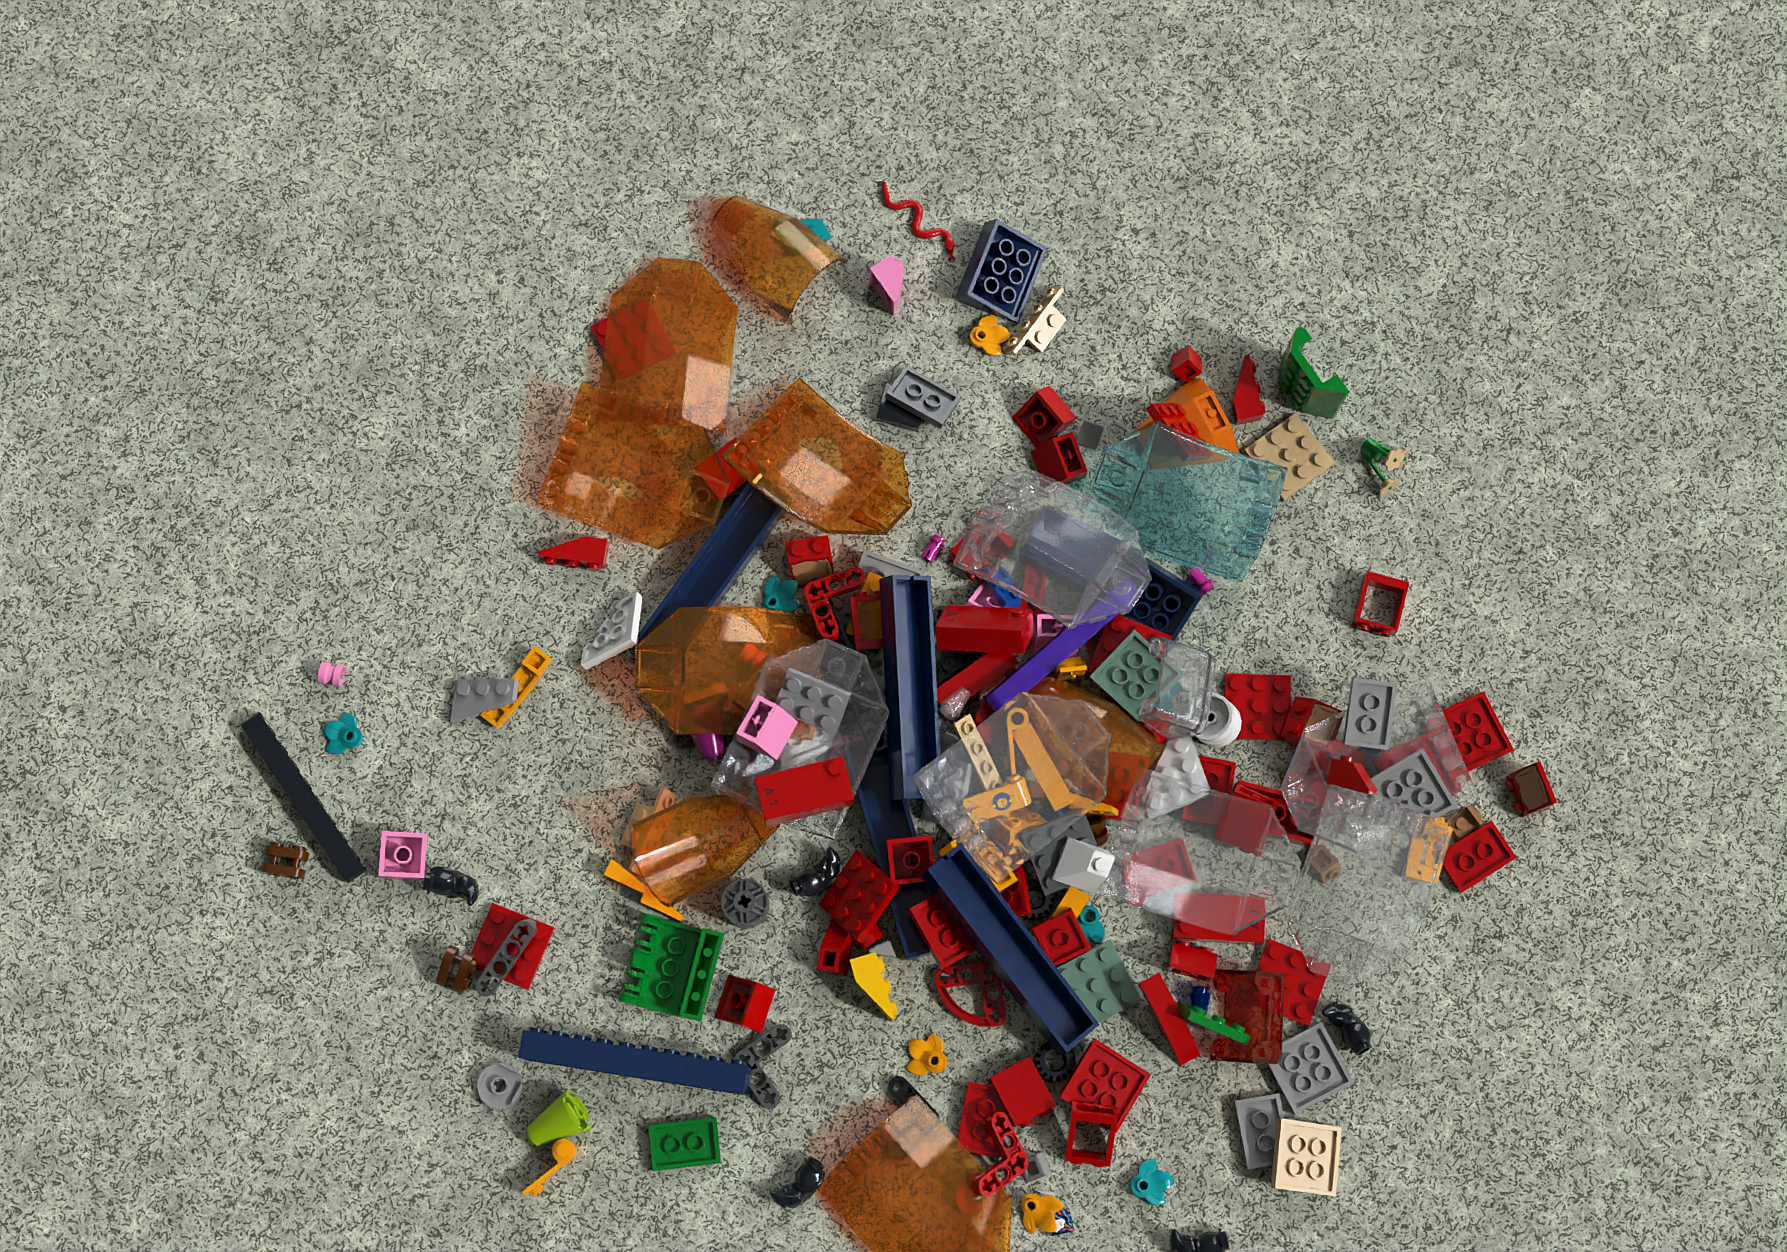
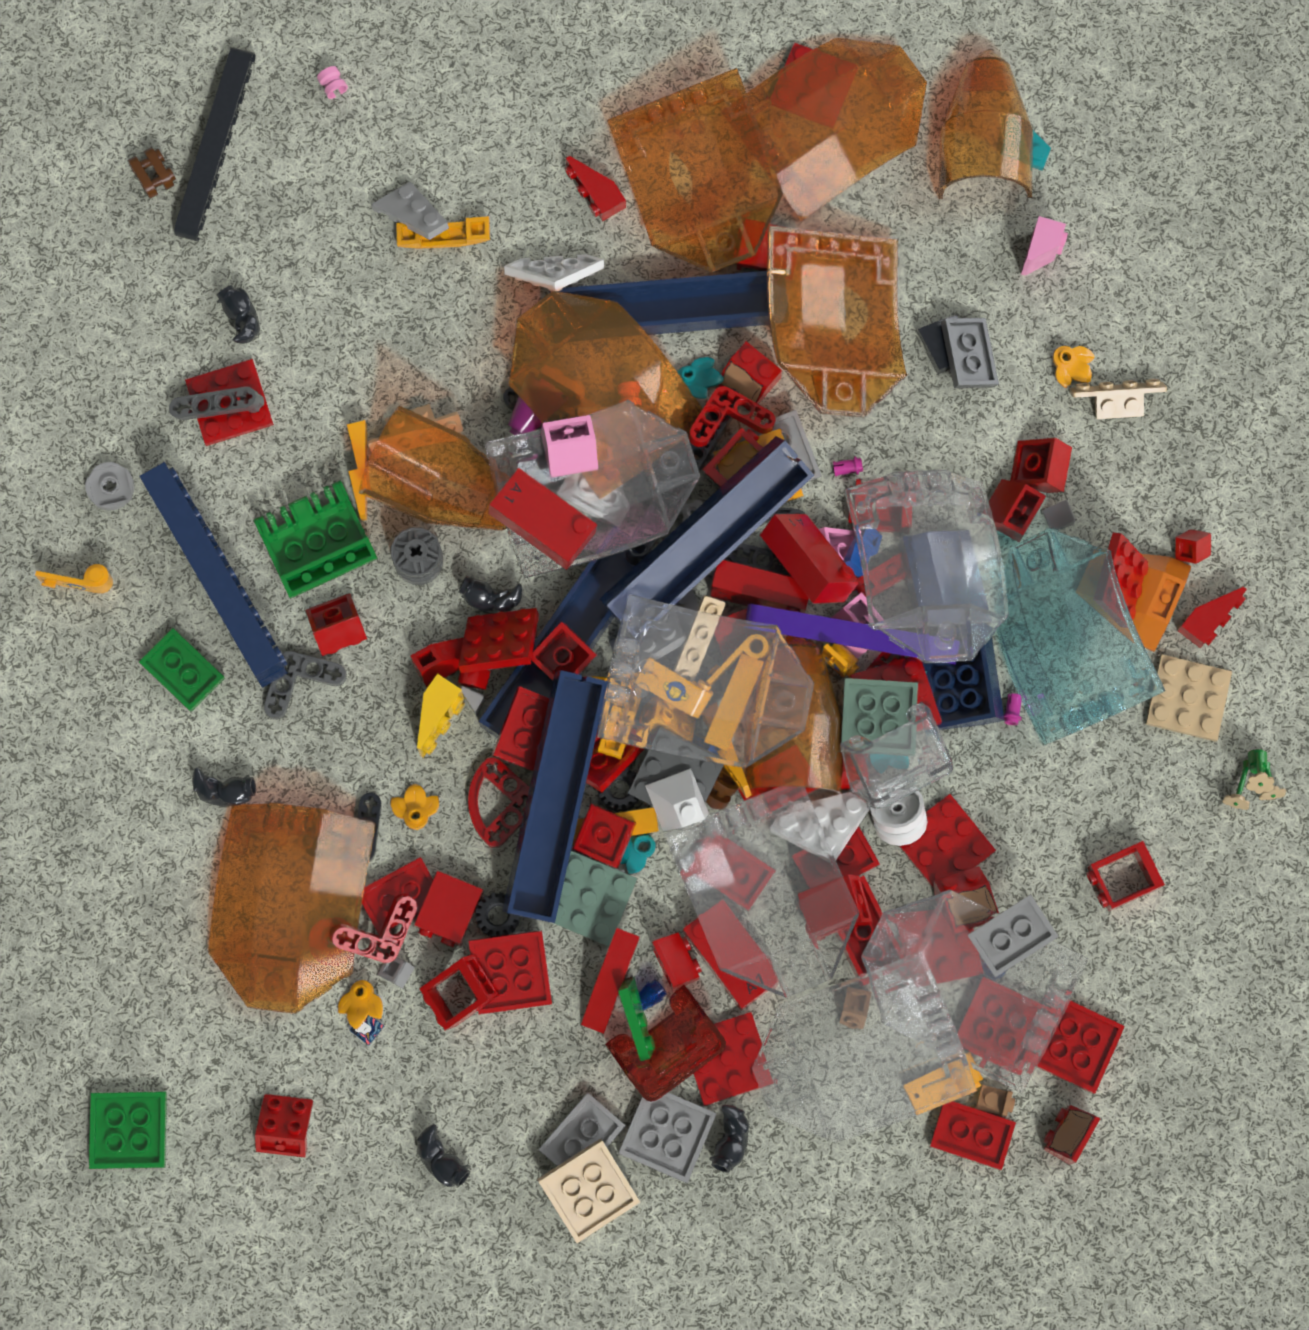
camera: 50 degrees right, 0 degrees up
(339, 734) = (289, 129): teal plate -> none
(402, 855) = (230, 255): bright pink slope -> none
(461, 980) = (173, 374): reddish brown brick -> none
(559, 1120) = (122, 555): lime cone -> none
(813, 701) = (624, 465): light grey plate -> none
(949, 243) = (1124, 267): red animal -> none
(955, 703) = (724, 584): clear cone -> none
(1001, 271) = (1137, 329): dark blue slope -> none
(1155, 1183) = (465, 1079): teal plate -> none
(1304, 385) = (1257, 675): green slope -> none
(1350, 775) = (945, 963): red slope -> none
(1414, 785) = (983, 1025): light grey plate -> none

